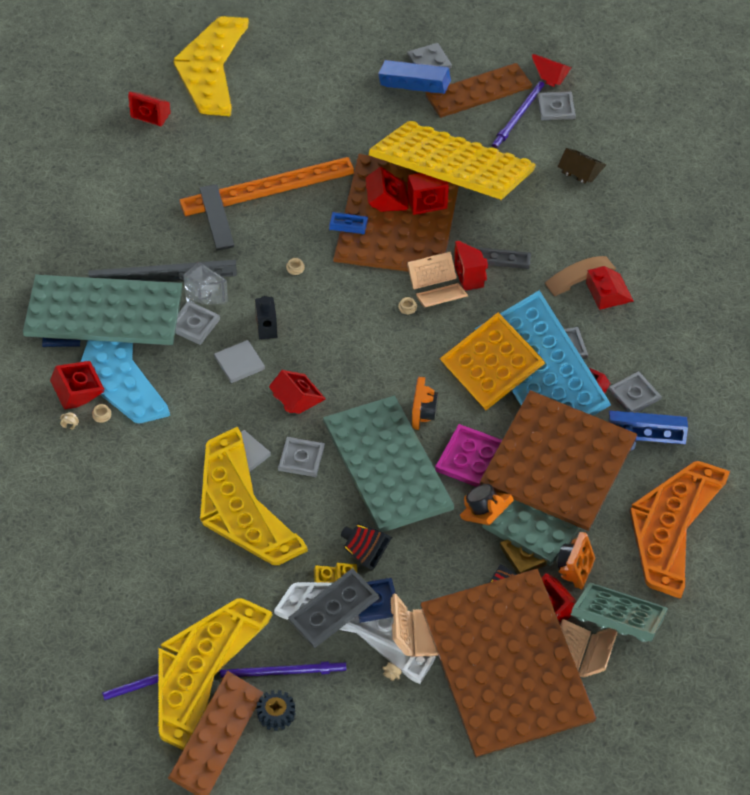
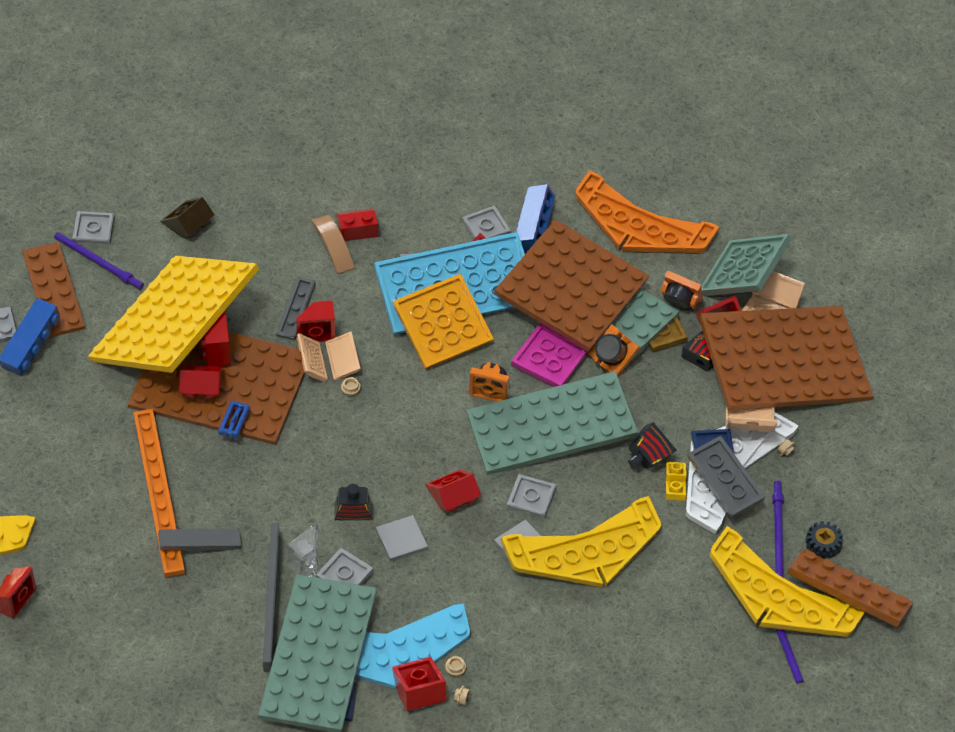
camera: 85 degrees left, 0 degrees up
(295, 266) = (279, 477): tan plate -> none
(550, 70) = (44, 220): red slope -> none

